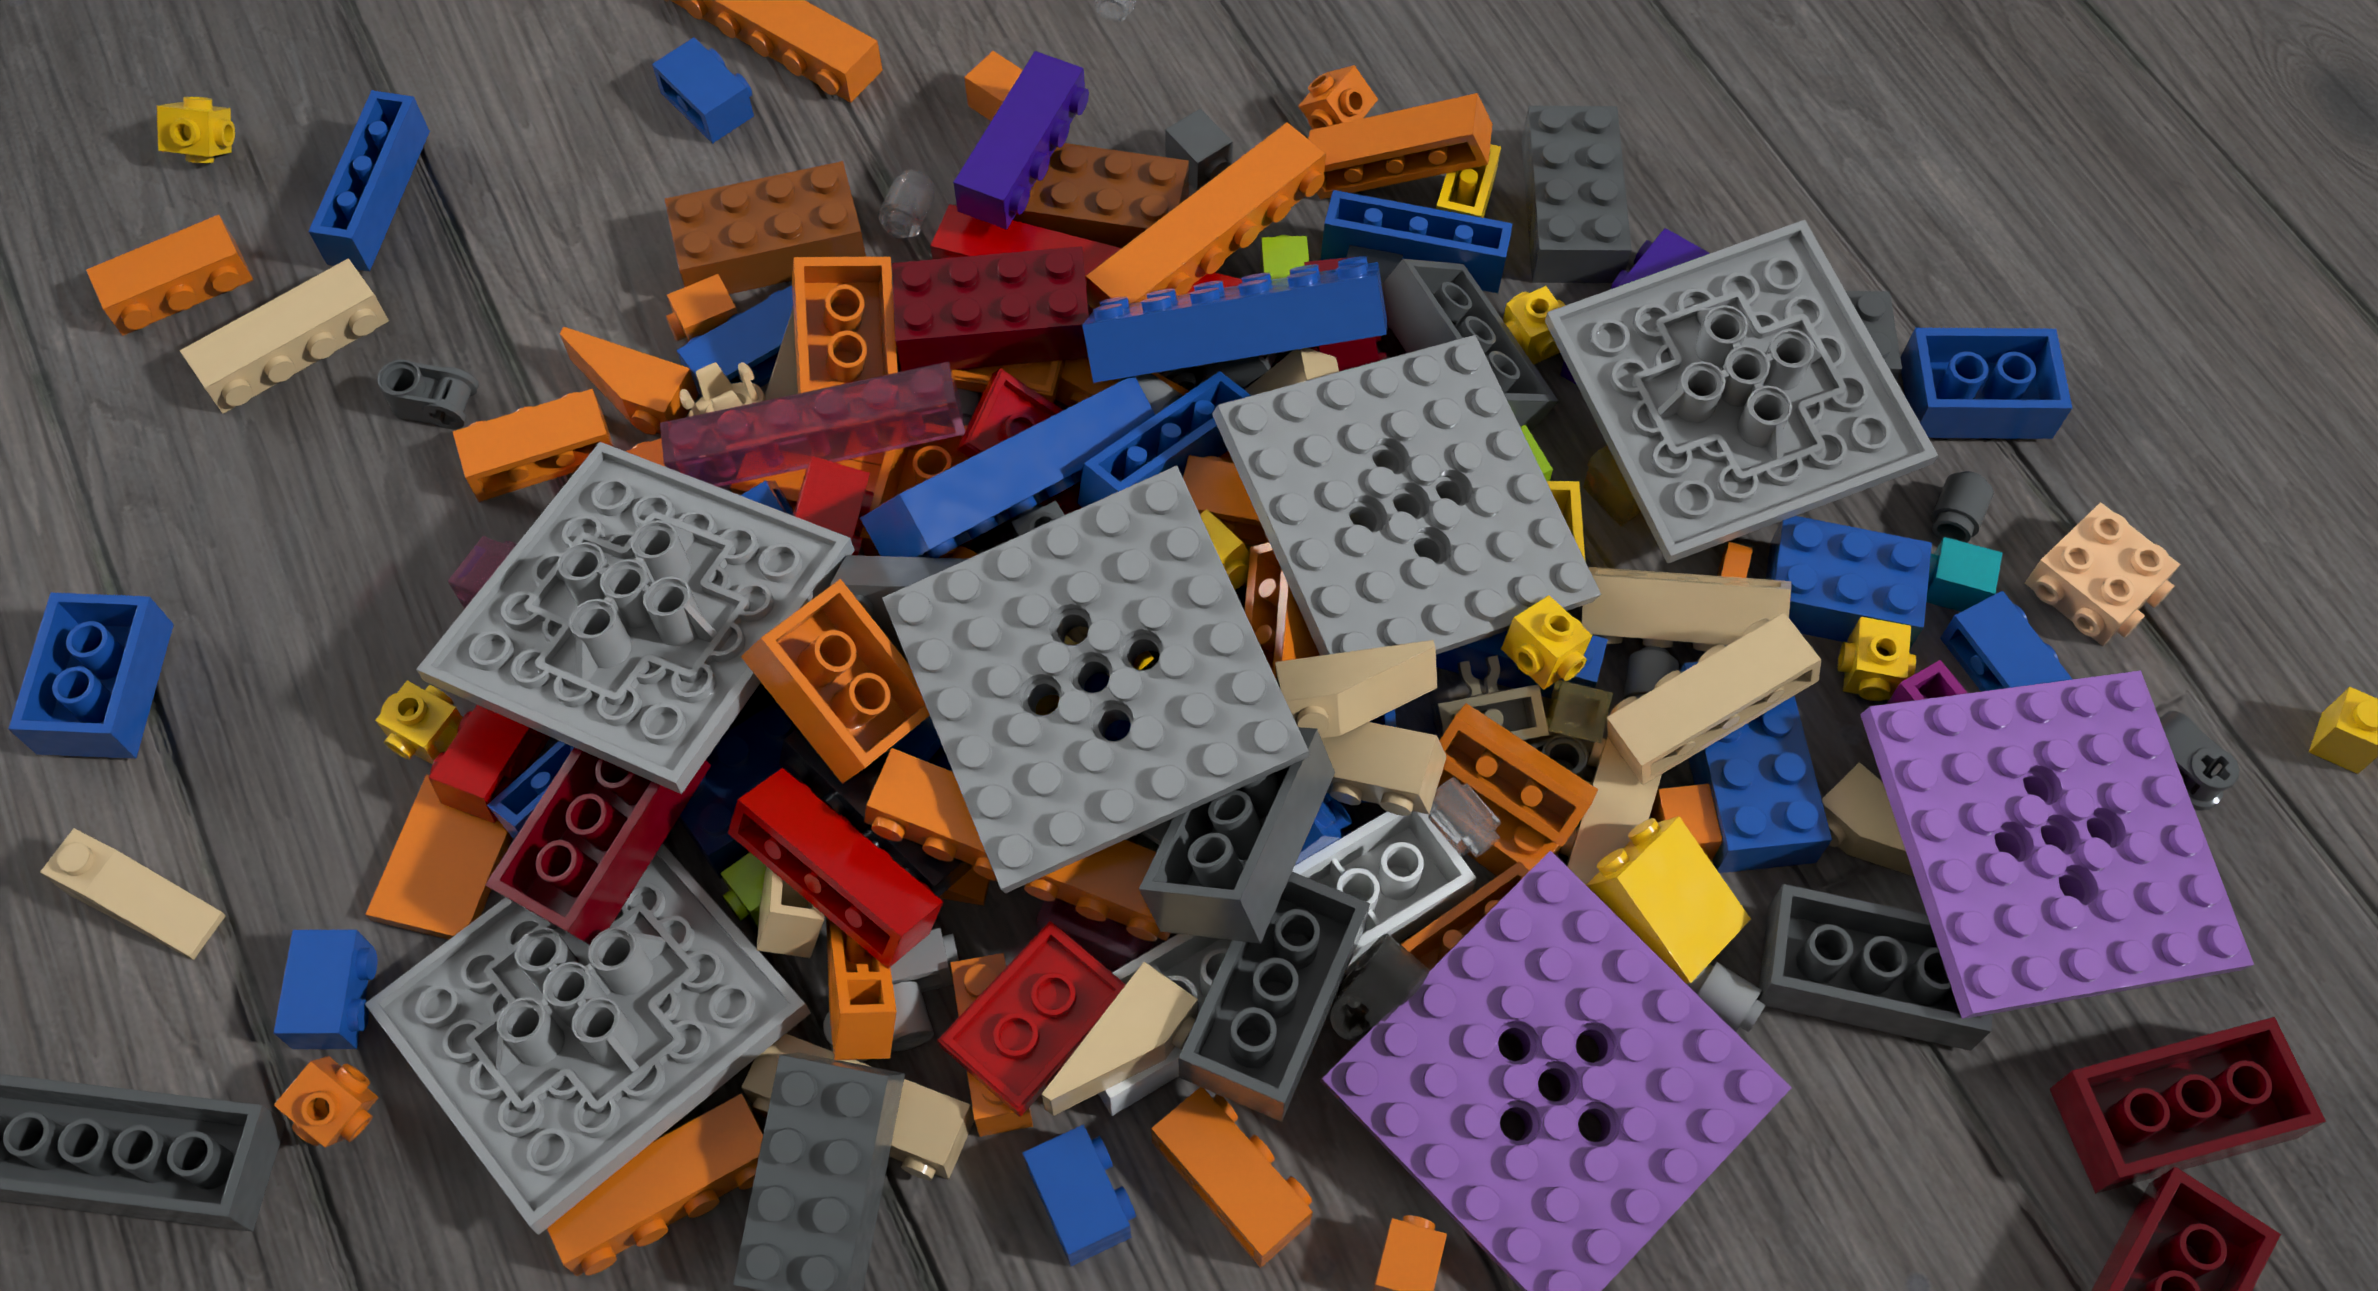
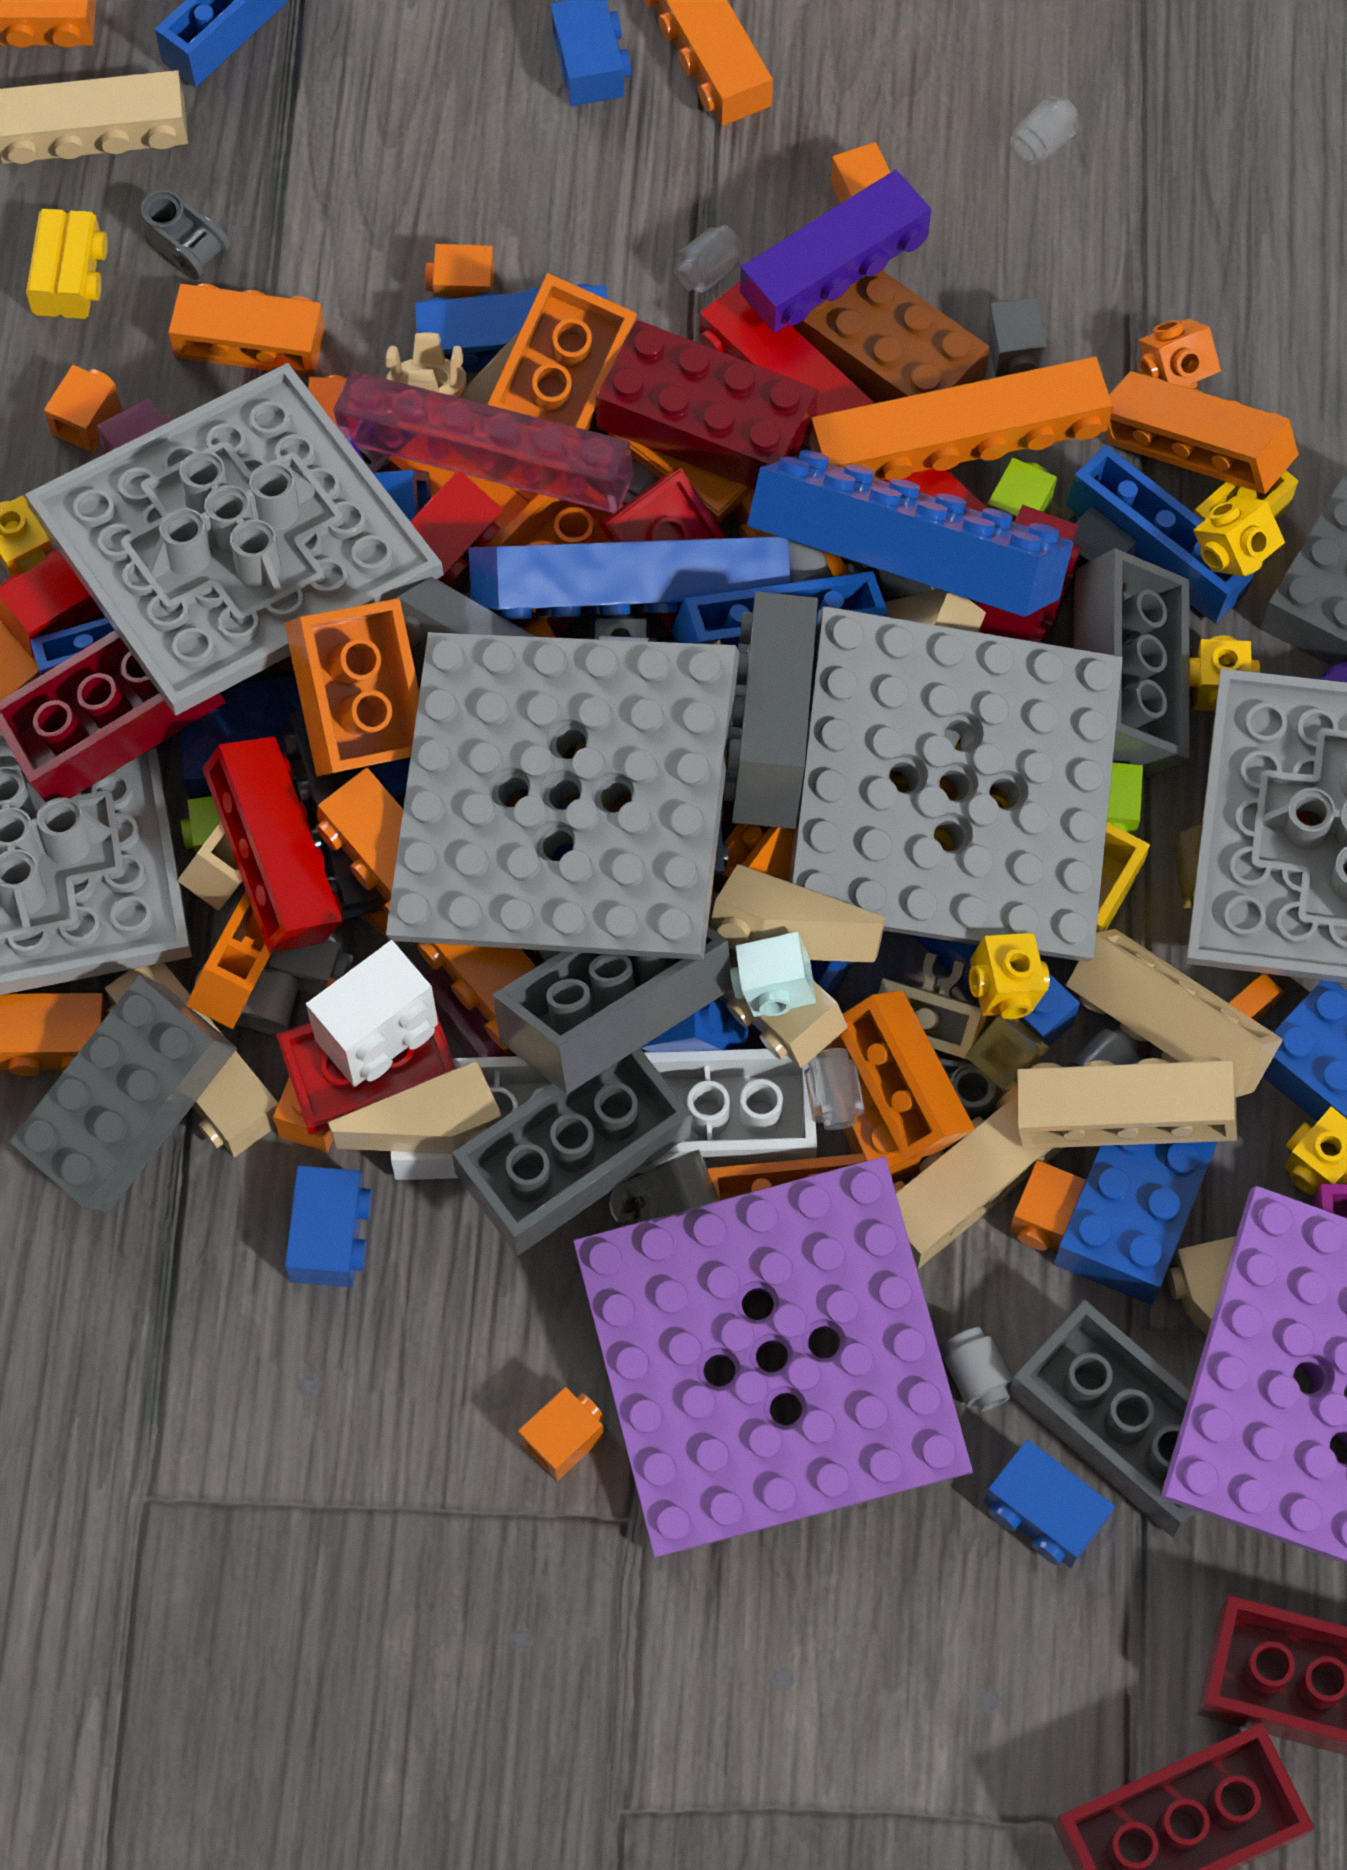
camera: 30 degrees right, 5 degrees up
(332, 468) = (65, 264): none -> yellow brick
(418, 581) = (80, 405): none -> orange brick
(633, 381) = (365, 313): orange slope -> none
(760, 225) = (565, 222): dark orange brick -> none
(1028, 970) = (373, 1014): none -> white piece
(1233, 1174) = (462, 1282): orange brick -> none
(1238, 509) = (771, 710): none -> dark grey brick
(1370, 740) = (773, 975): none -> light aqua brick
(1493, 203) = (1238, 536): none -> yellow brick
(1670, 896) = (975, 1257): yellow brick -> none
(1859, 1081) = (1047, 1505): none -> blue brick

